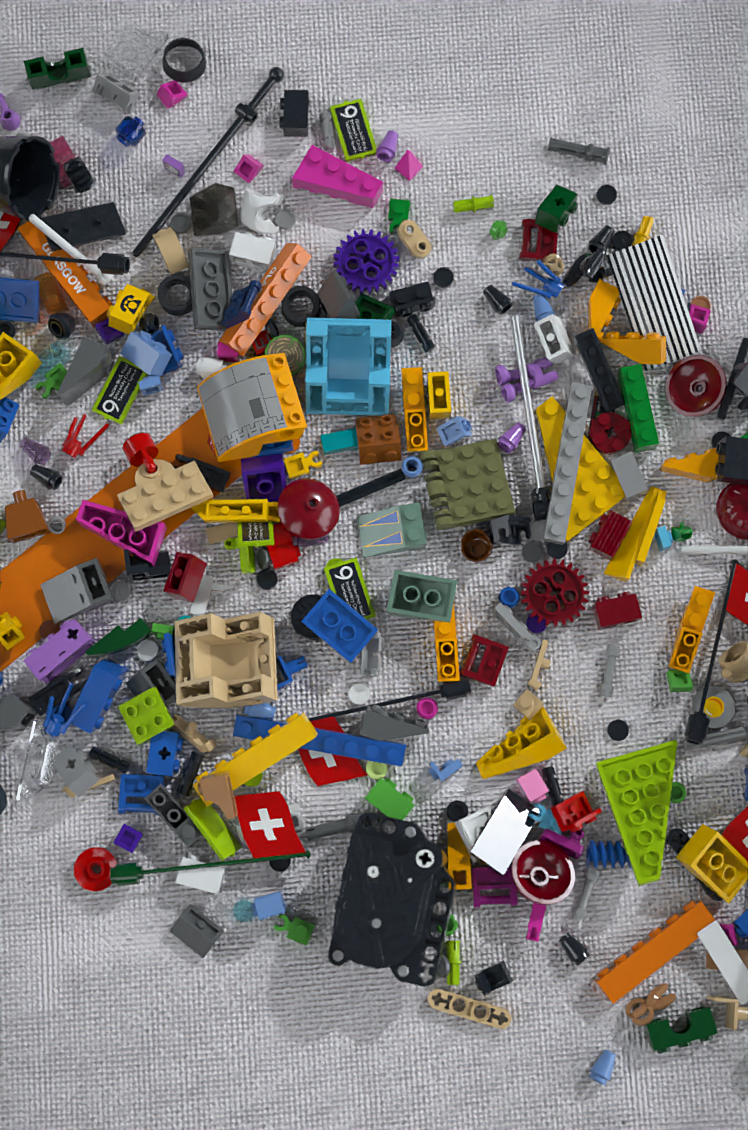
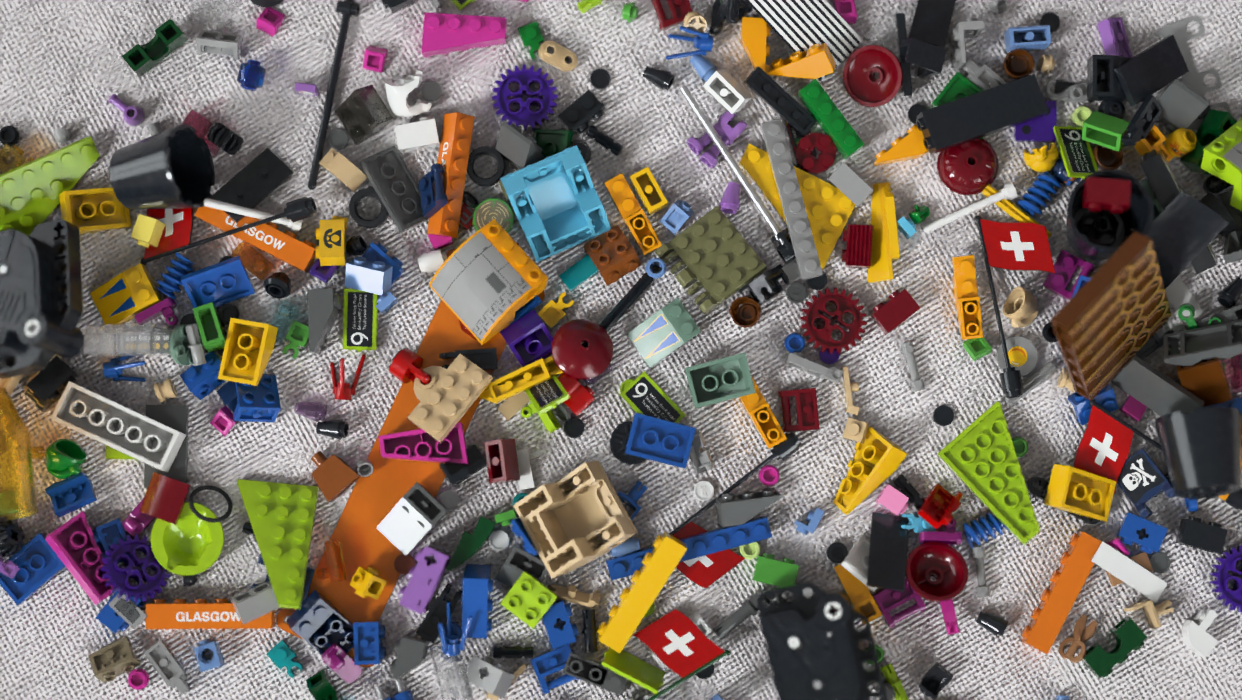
camera: 25 degrees left, 5 degrees up
(219, 790) = (624, 635): medium nougat arch -> none

